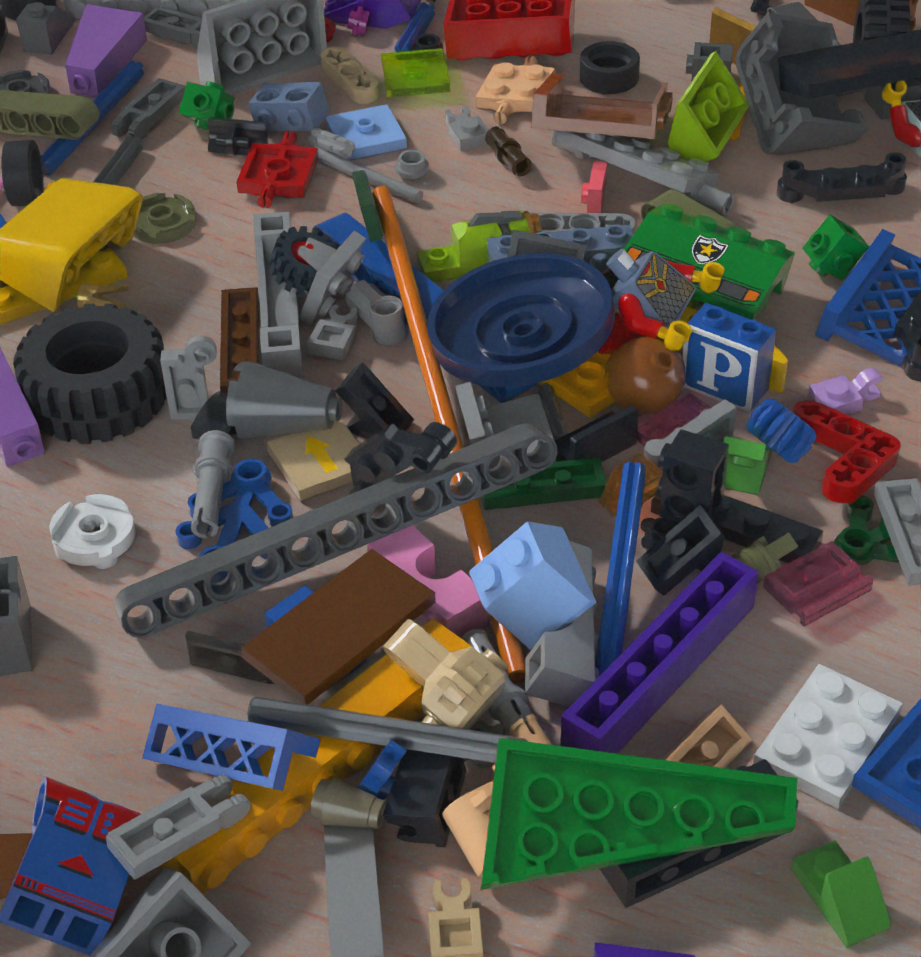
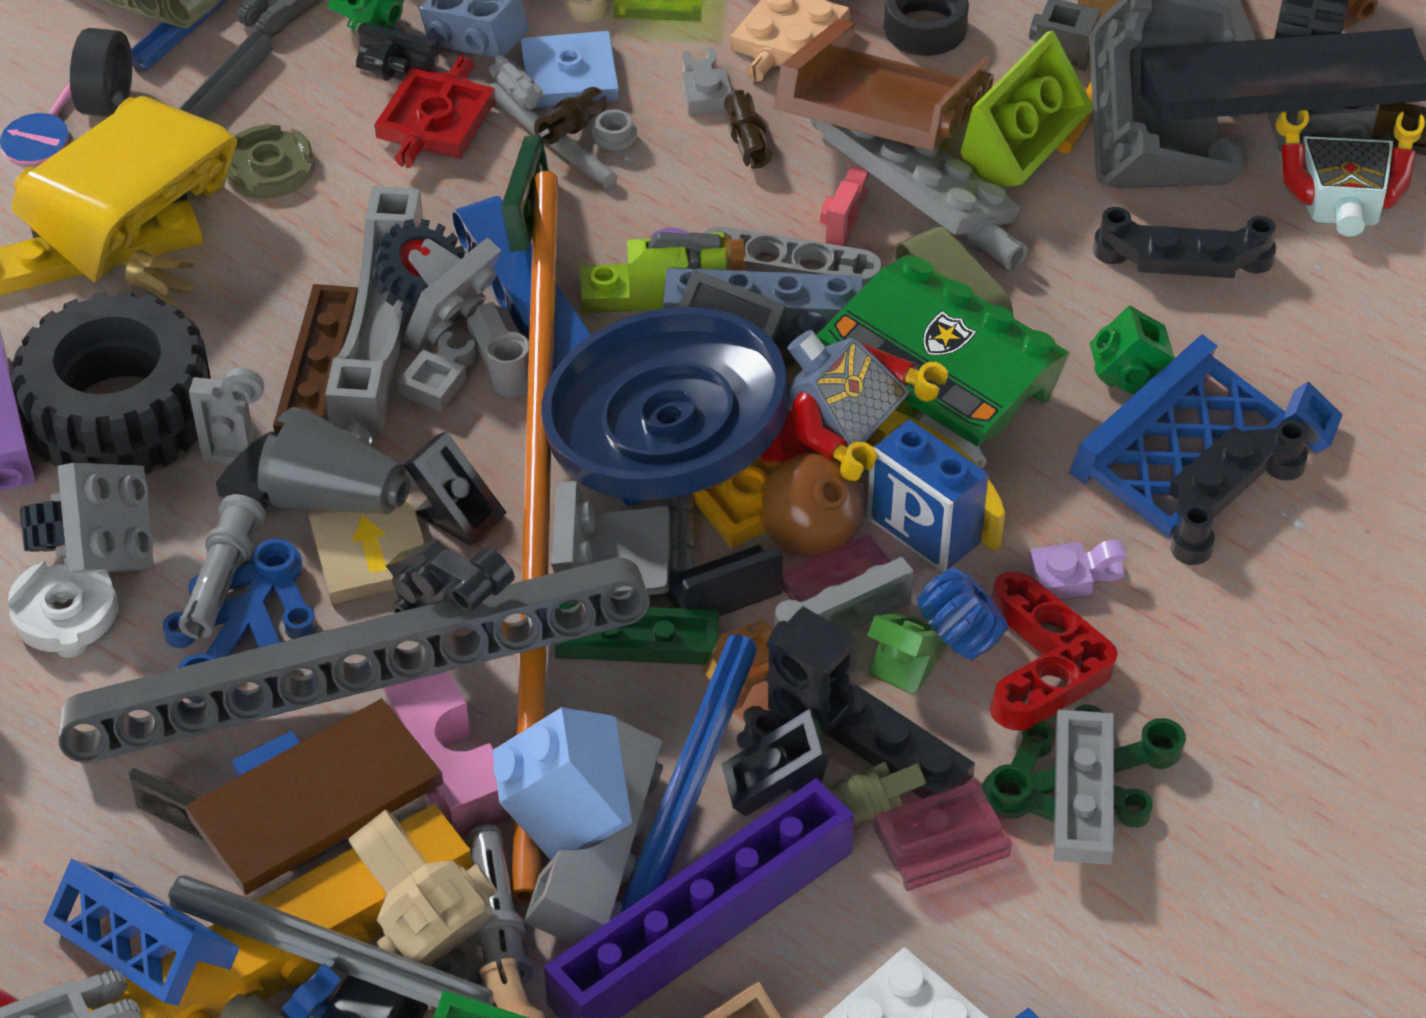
camera: 10 degrees right, 5 degrees up
(105, 463) = (94, 519): none -> light grey plate
(379, 157) = (570, 115): none -> dark brown pin

